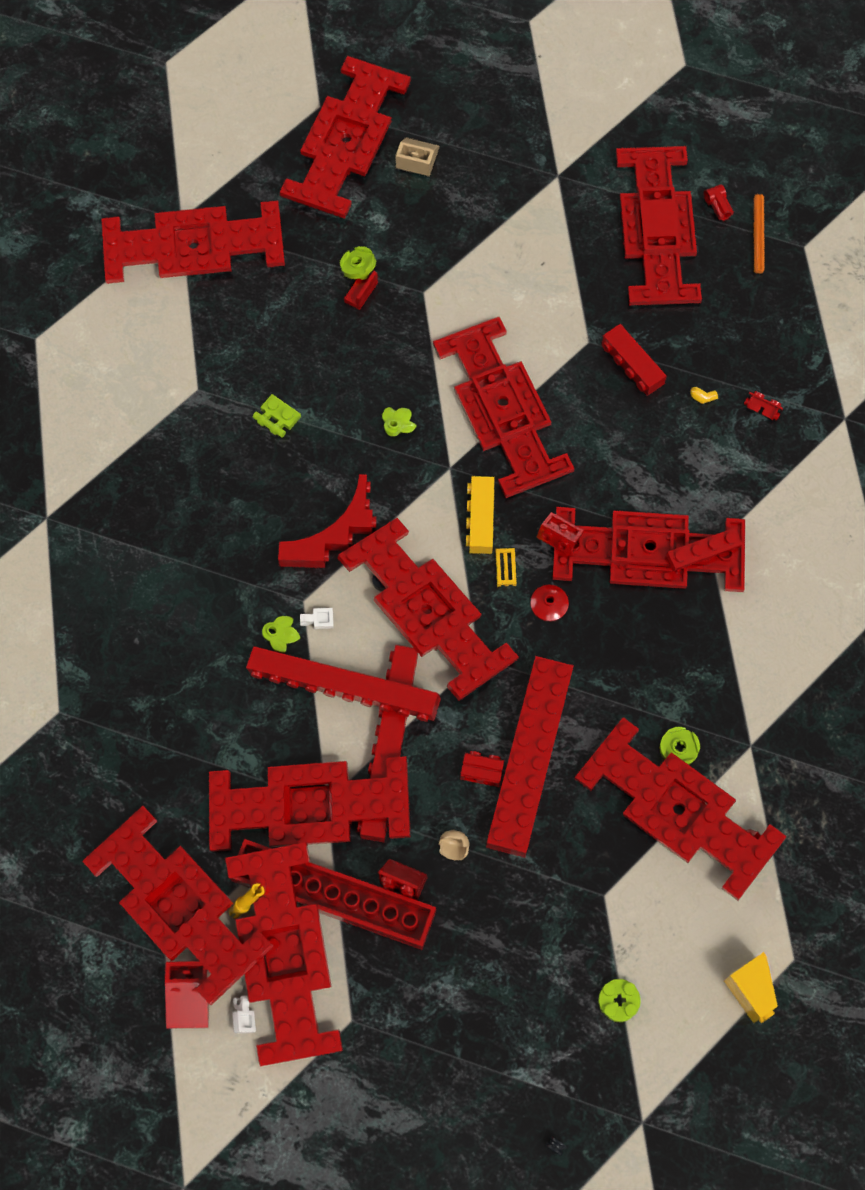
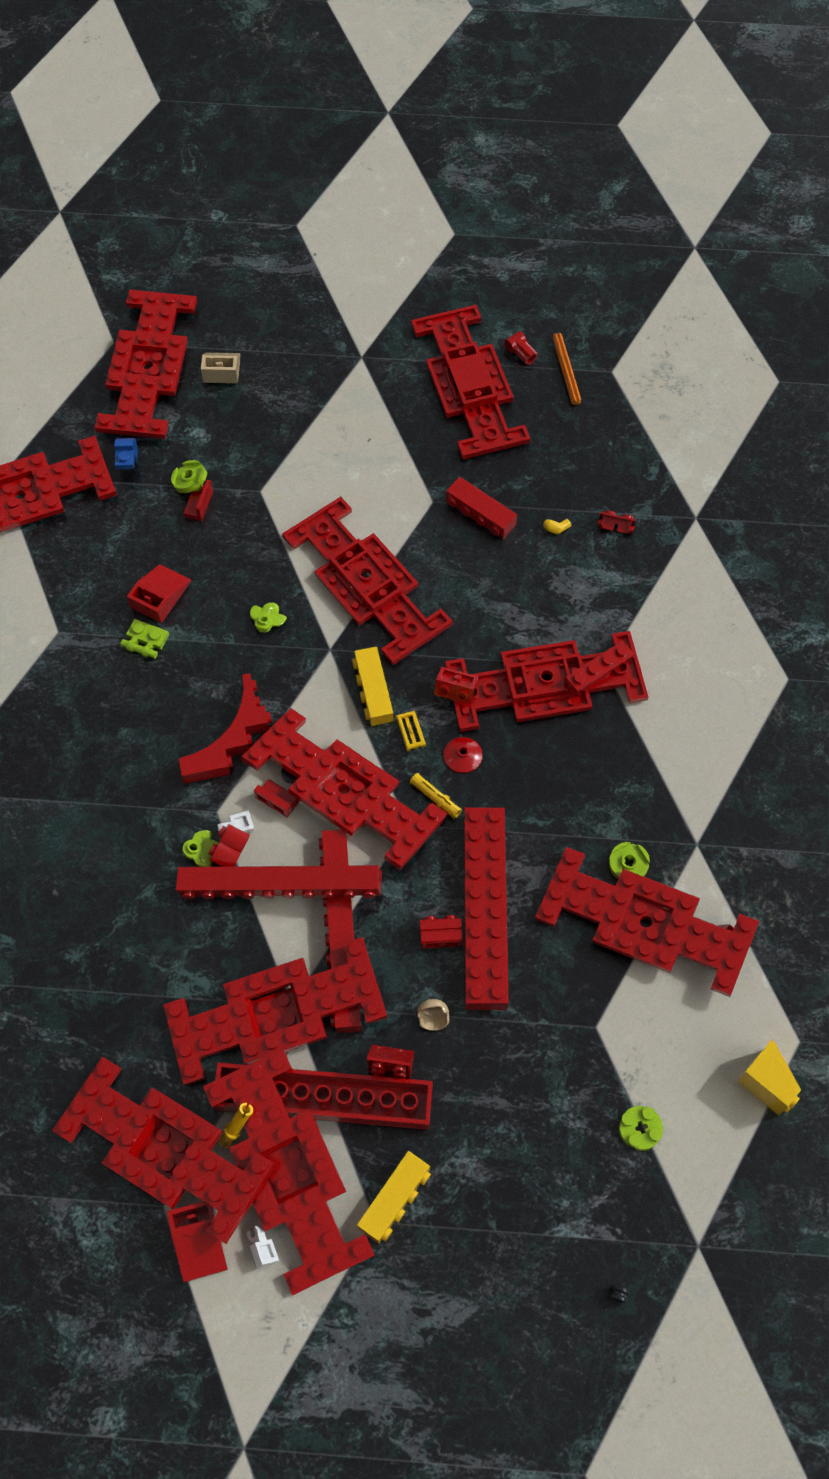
camera: 15 degrees left, 5 degrees down
(300, 373) = (157, 592): none -> red slope
(303, 225) = (125, 453): none -> blue brick
(306, 638) = (229, 846): none -> red brick
(361, 600) = (276, 797): none -> red panel
(373, 1003) = (393, 1198): none -> yellow brick
(516, 642) = (436, 796): none -> yellow pin

